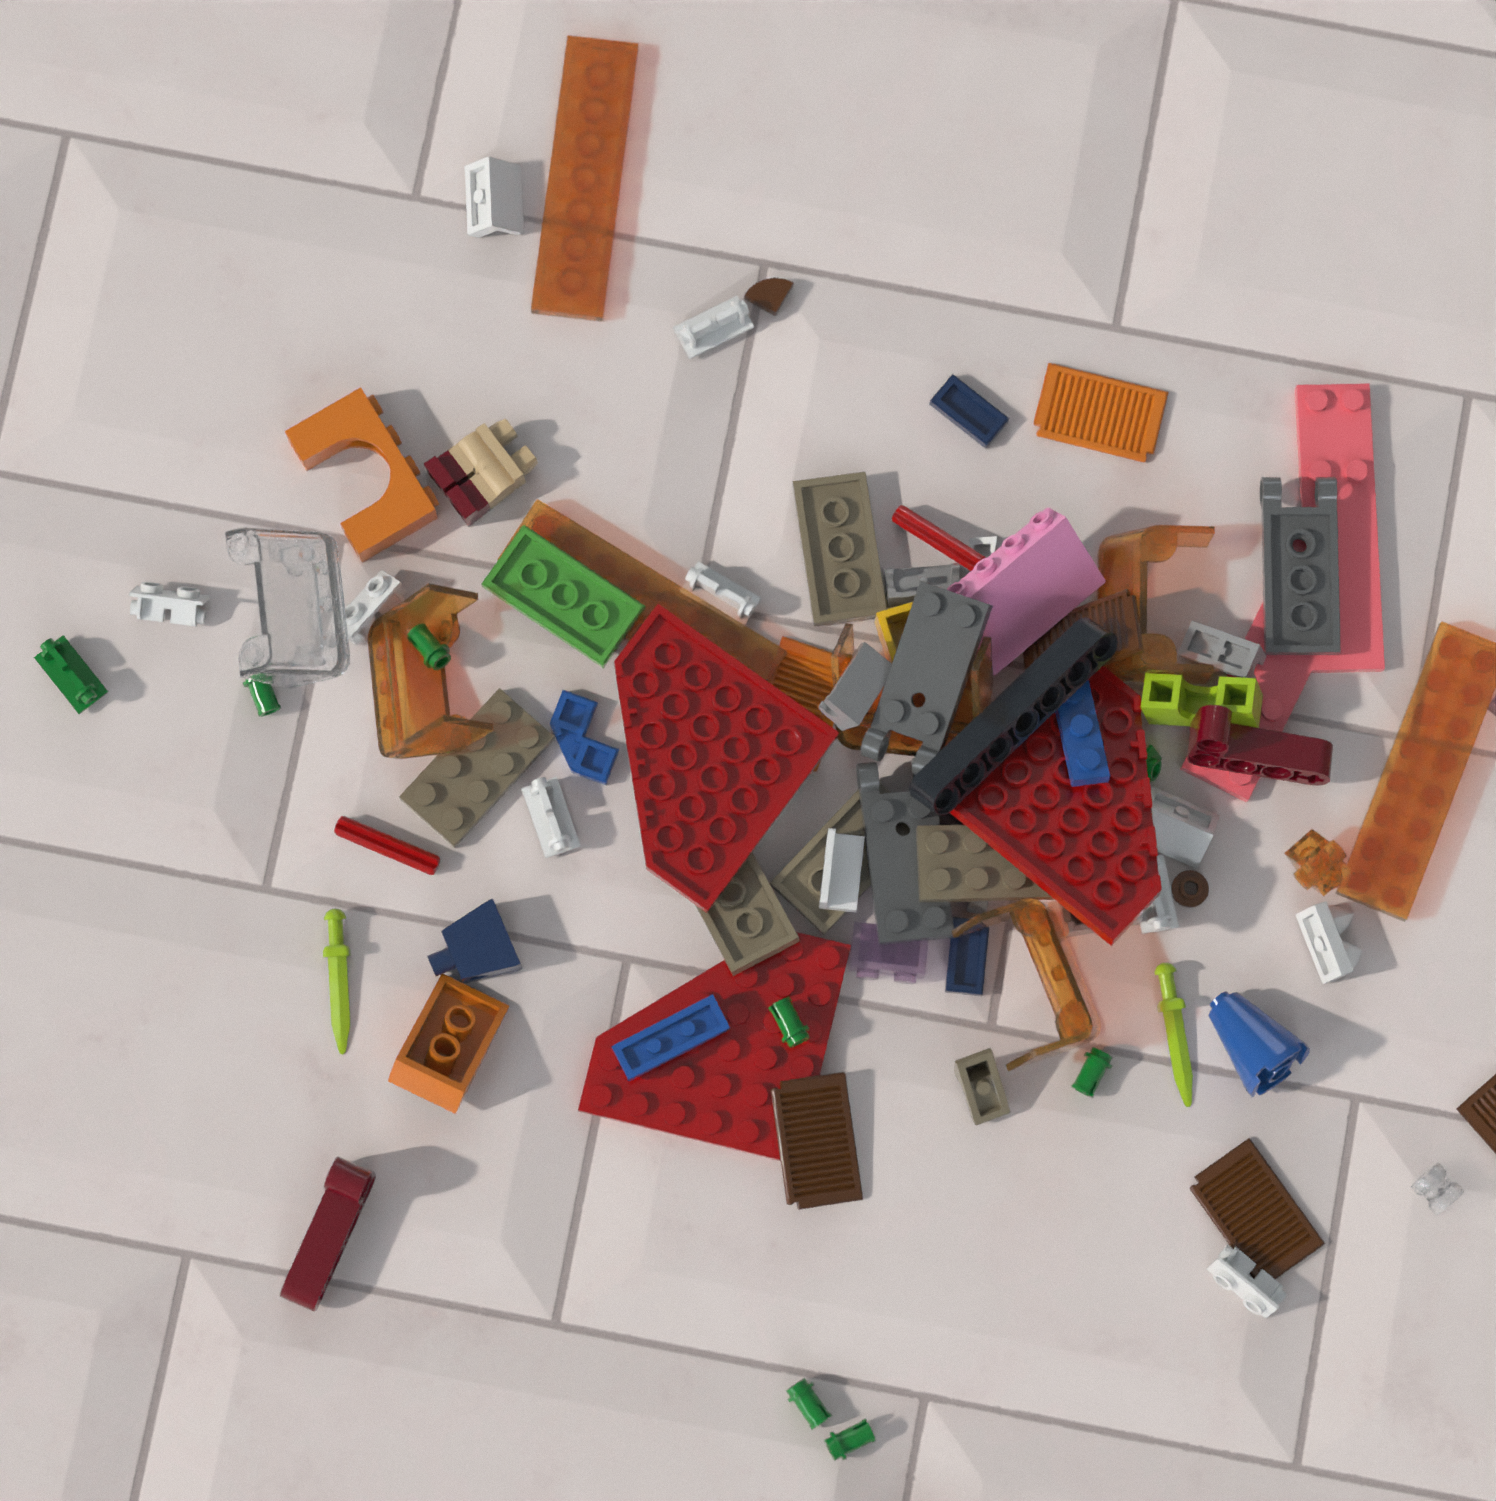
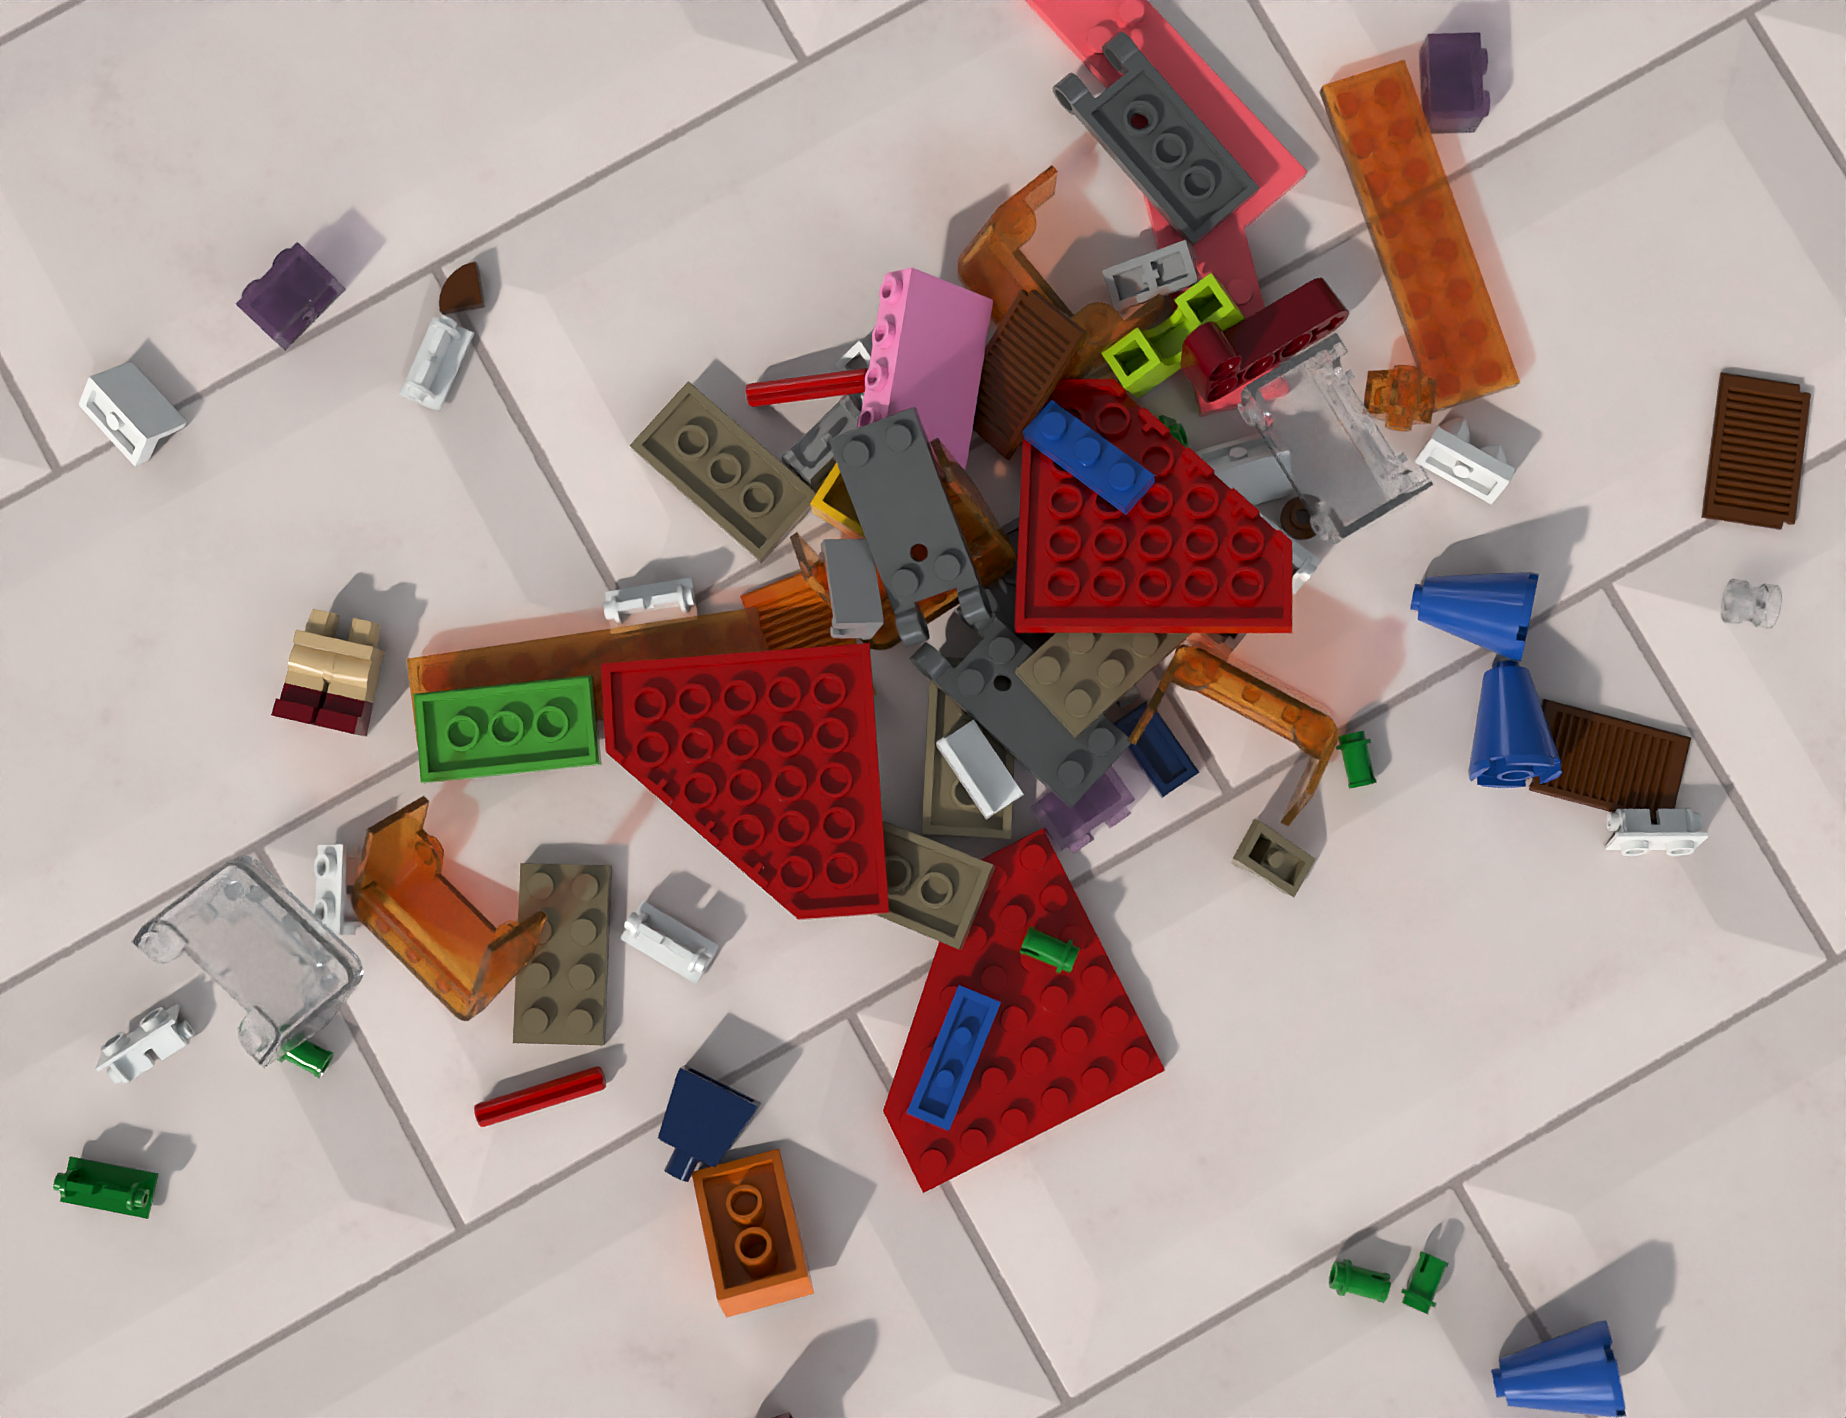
camera: 30 degrees left, 5 degrees up
(338, 977) = (579, 1237): lime sword -> none
(356, 424) = (177, 730): orange arch -> none
(434, 653) = (432, 883): green pin -> none
(583, 755) = (649, 859): blue tile -> none
(585, 178) = (200, 324): clear orange plate -> none
(657, 207) = (290, 295): none -> clear purple brick
(816, 1141) = (1164, 1035): reddish brown window -> none
(969, 411) = (735, 247): dark blue tile -> none
(1013, 716) = (1020, 495): black beam -> none
(1099, 413) = (855, 151): orange window -> none
(1175, 1031) = (1377, 640): lime sword -> none
(1206, 1136) = (1511, 731): none -> blue cone
(1244, 851) = (1329, 443): none -> clear windscreen

